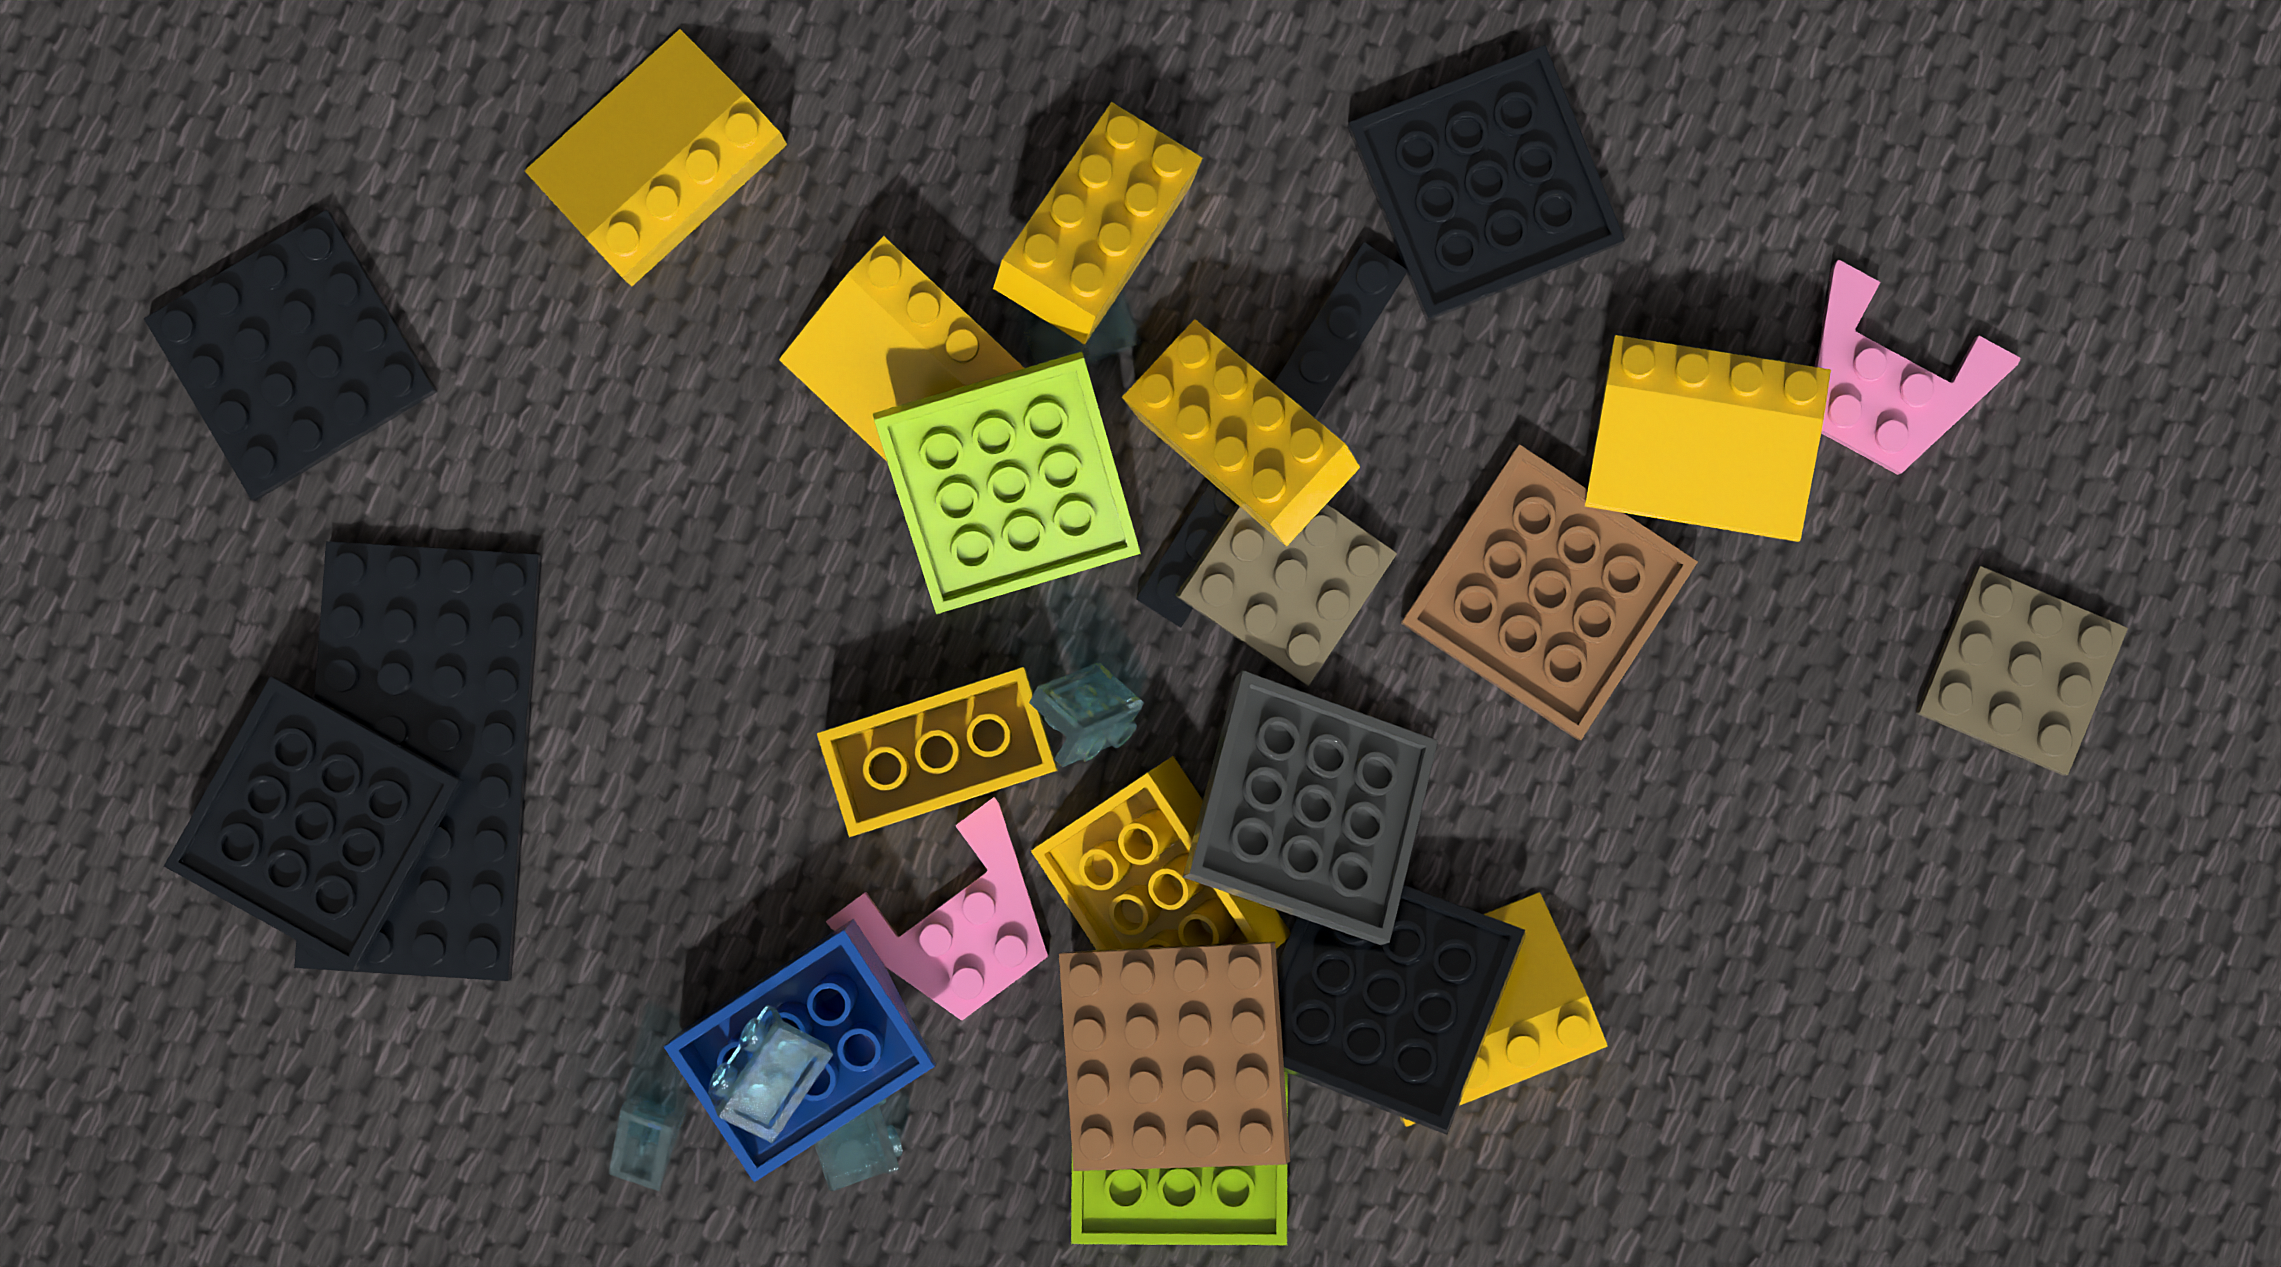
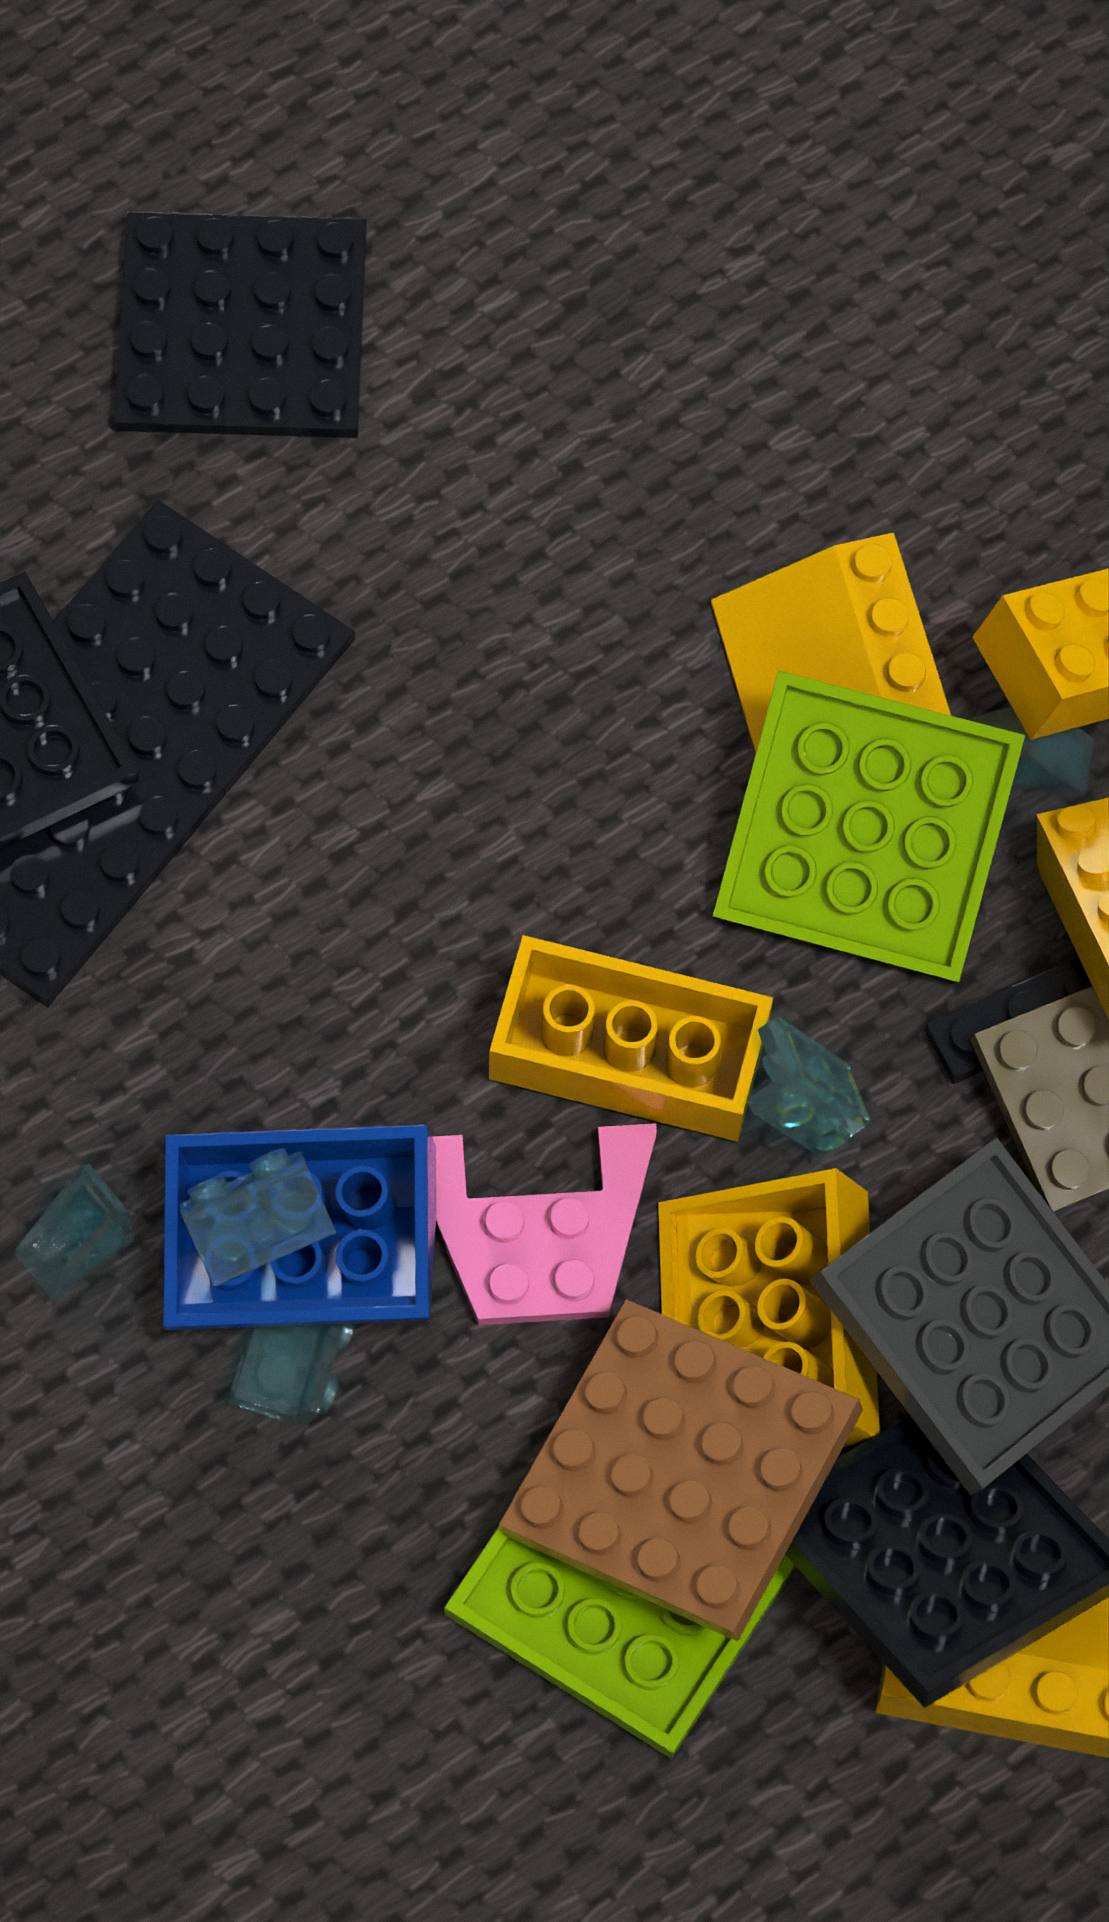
camera: 30 degrees right, 20 degrees down
(656, 157) = (715, 357): yellow slope -> none

